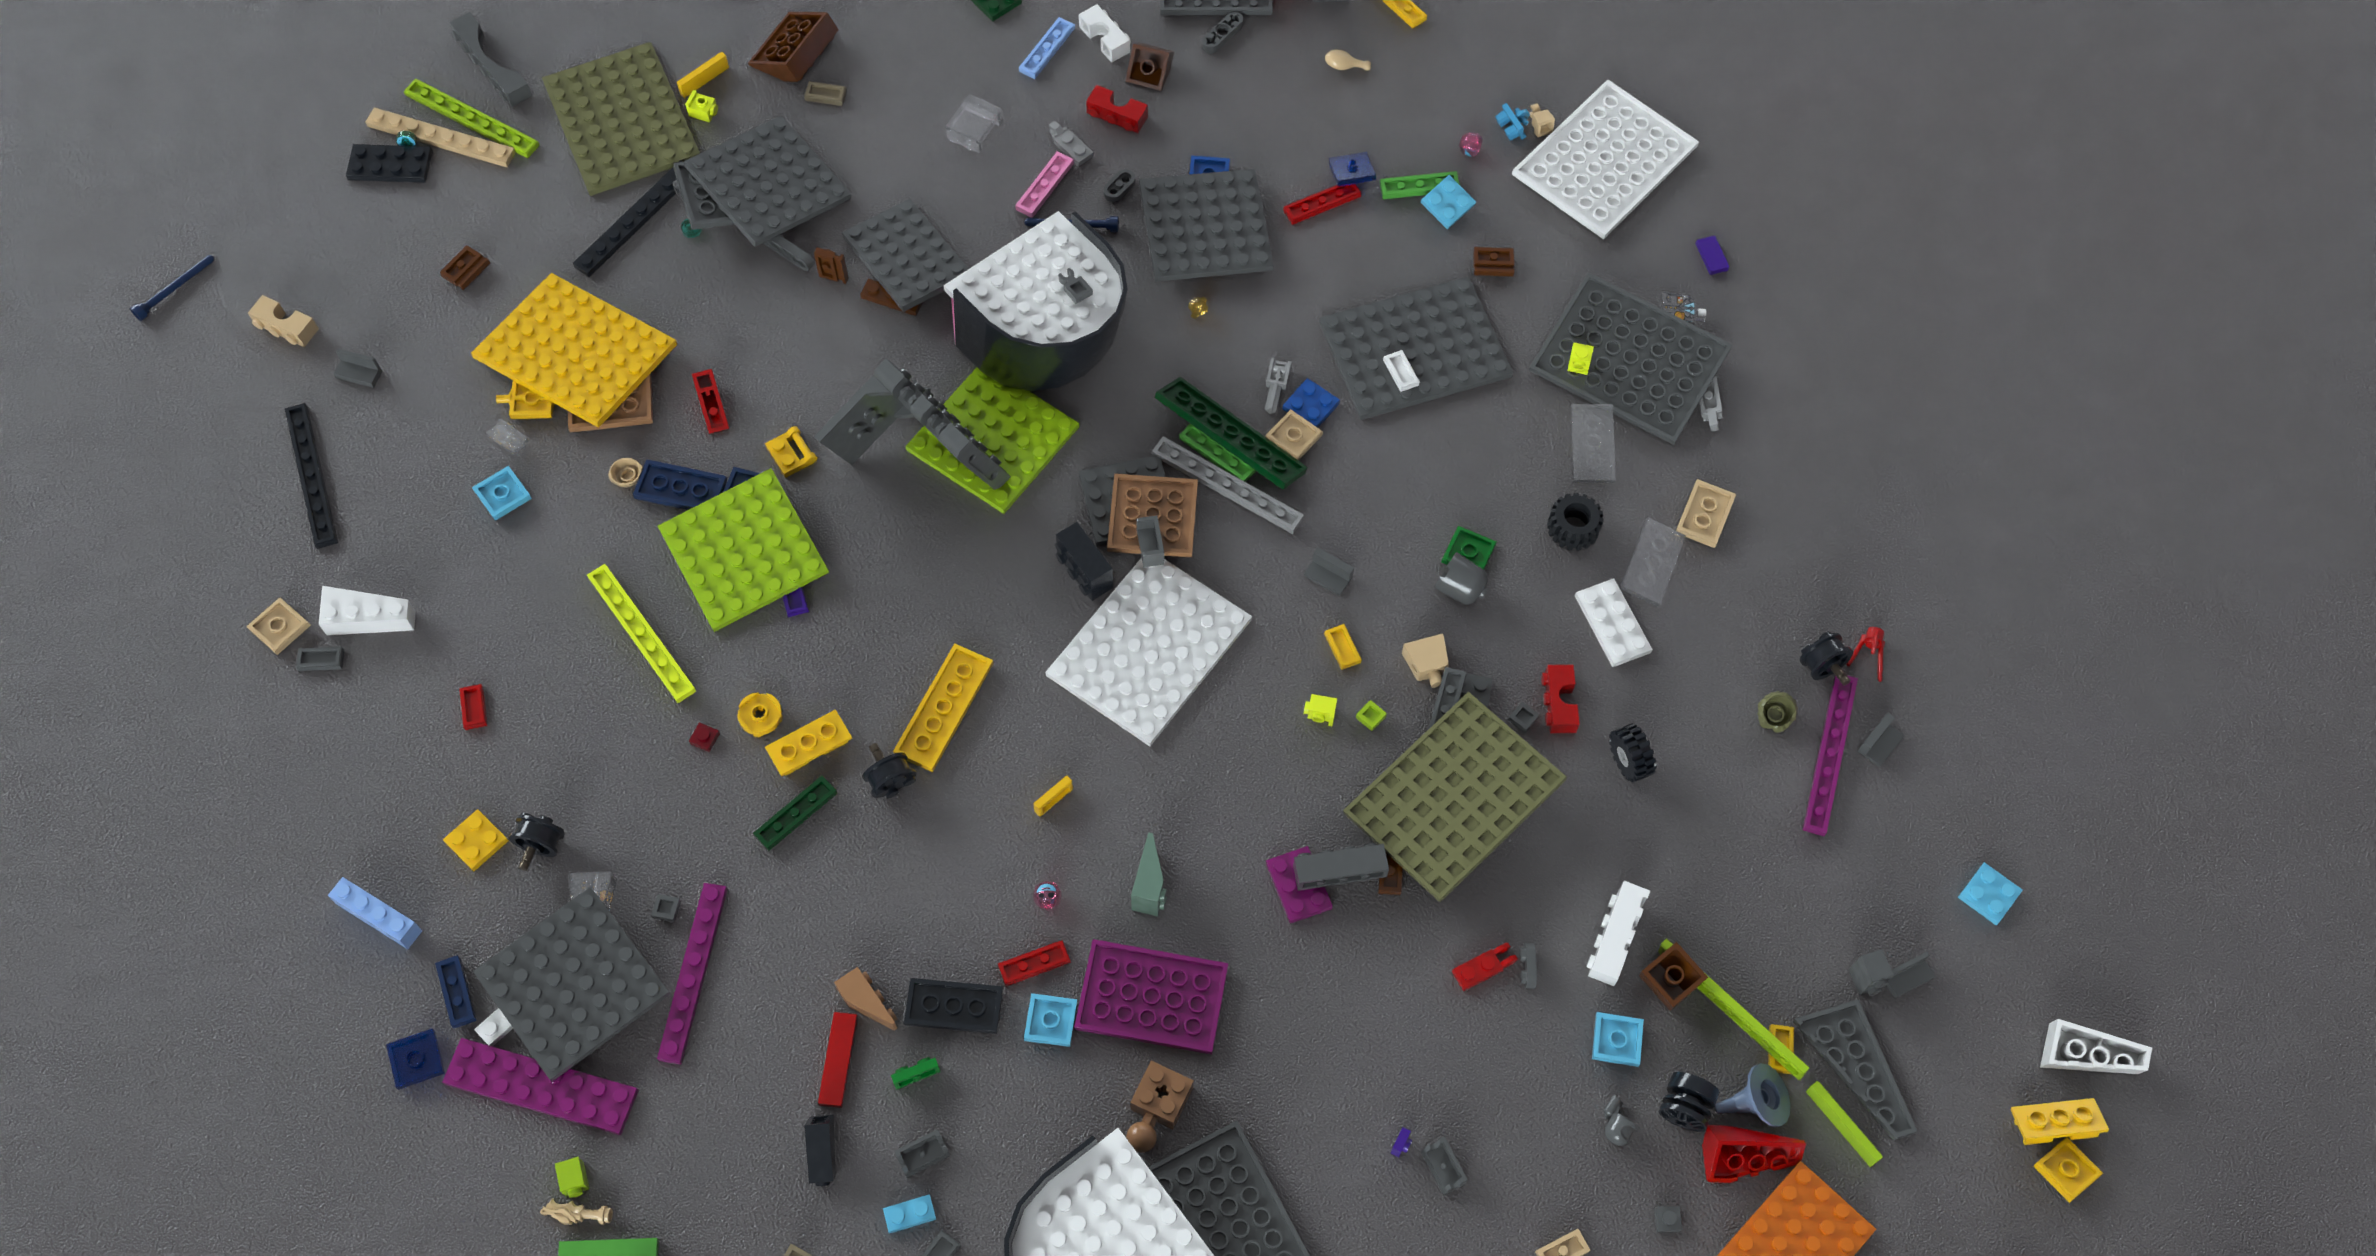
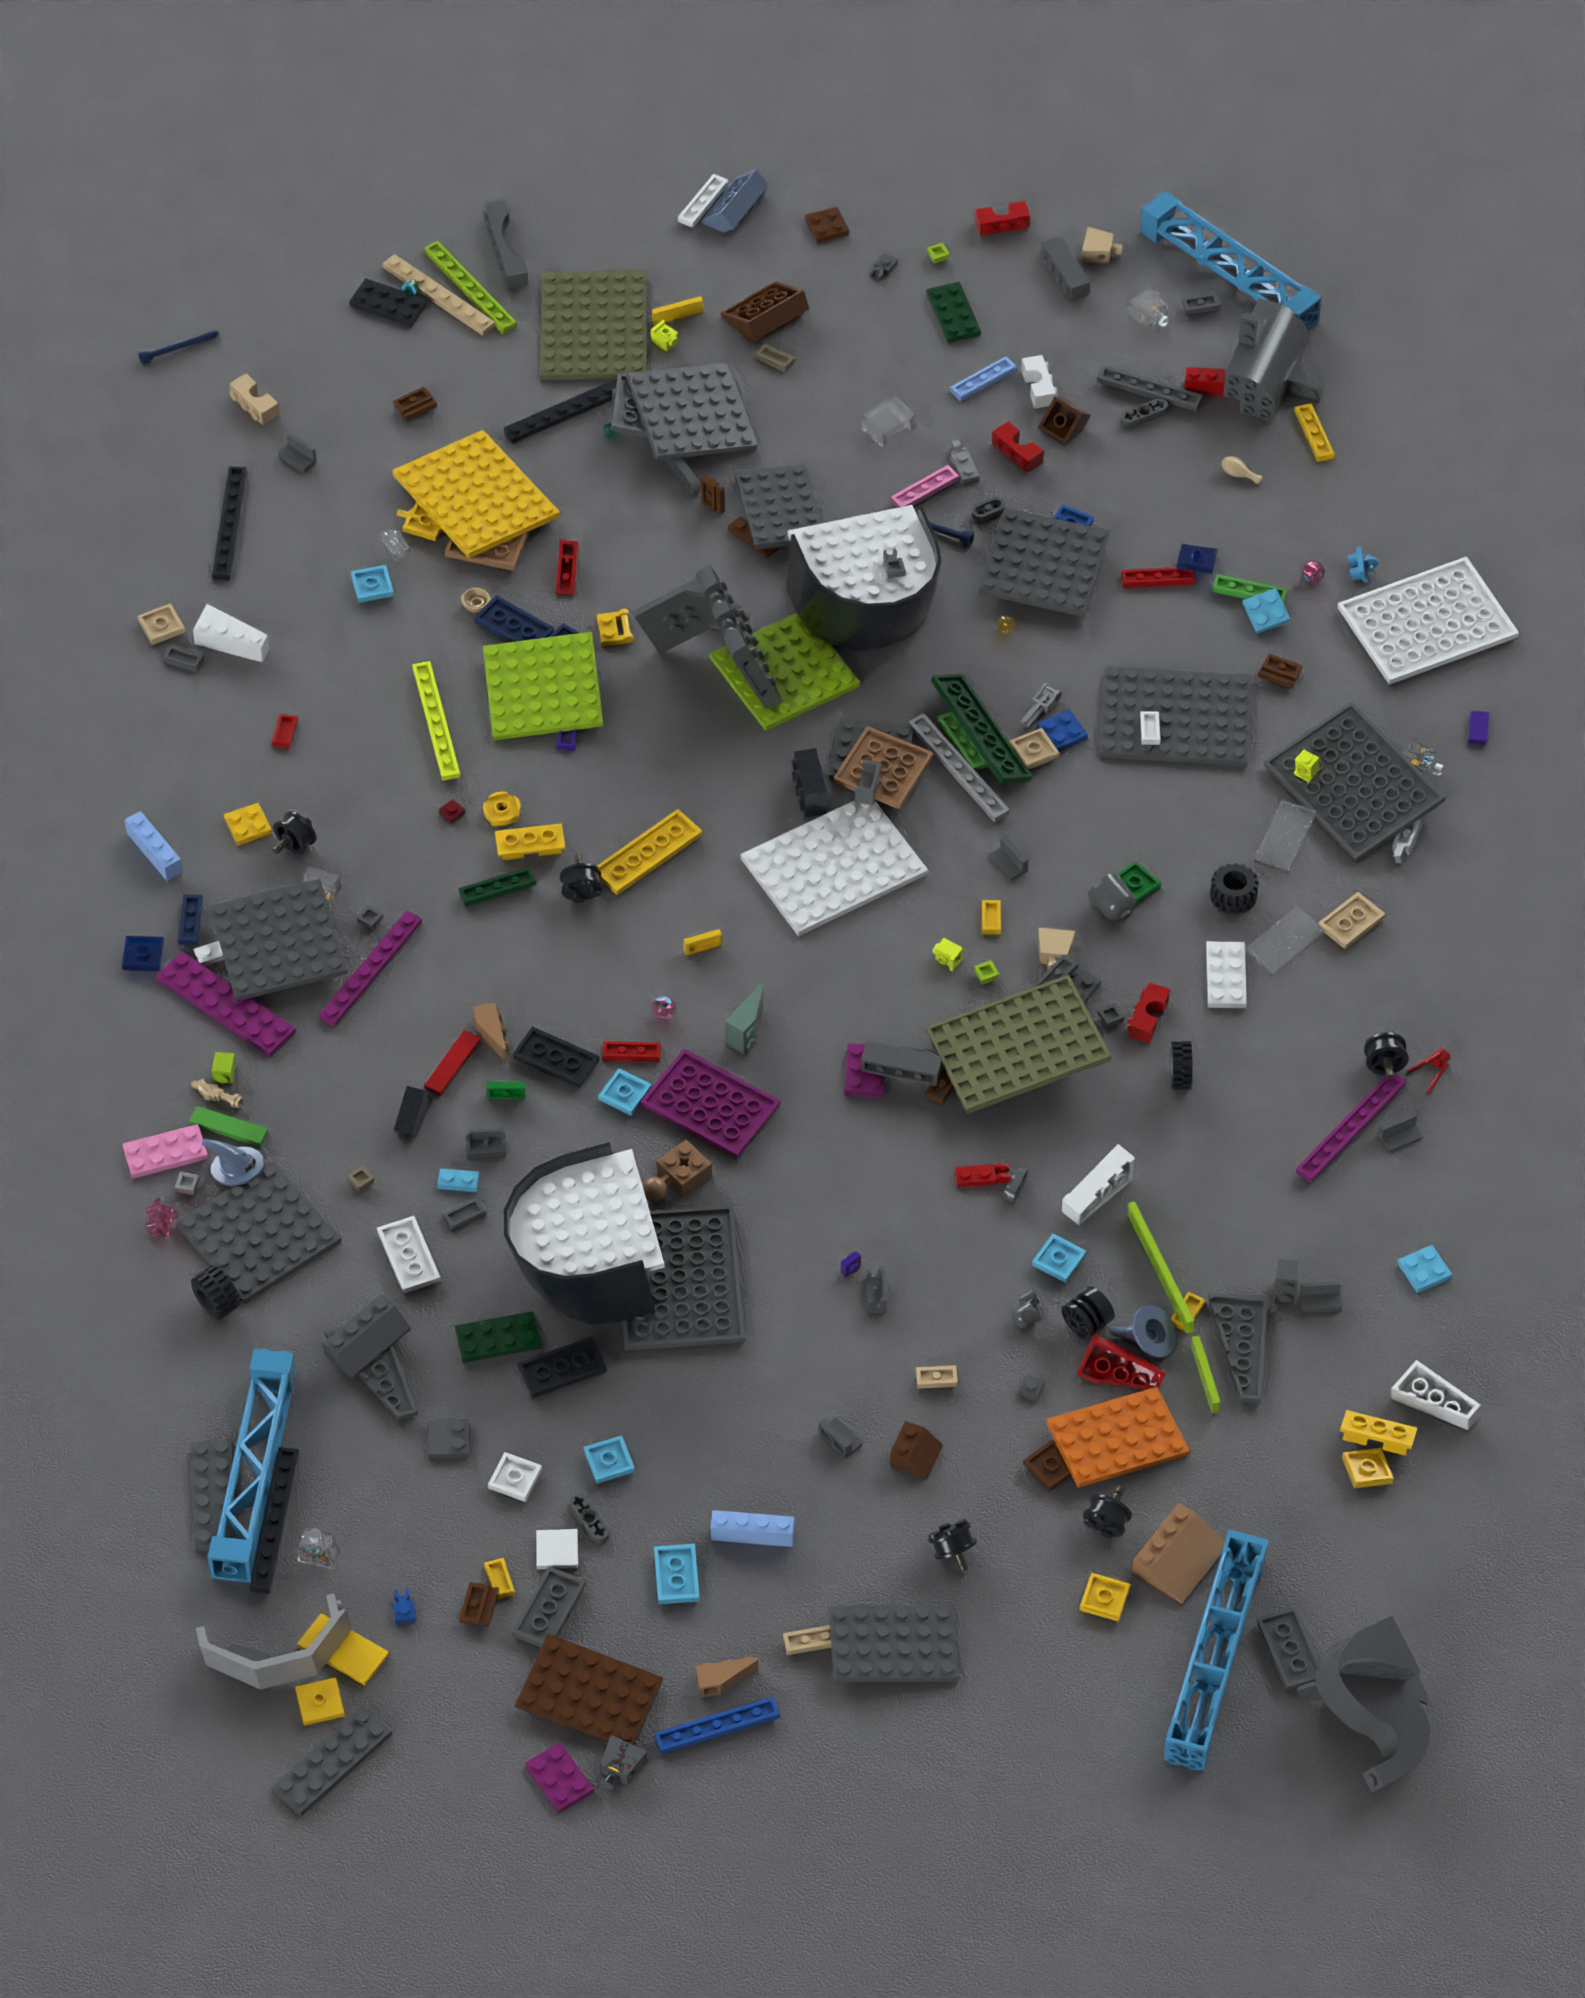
camera: 25 degrees right, 10 degrees down
(1541, 121) = (1387, 572): tan piece -> none
(1673, 976) = (1124, 1228): reddish brown slope -> none
(1777, 711) = (1322, 1080): olive hair -> none

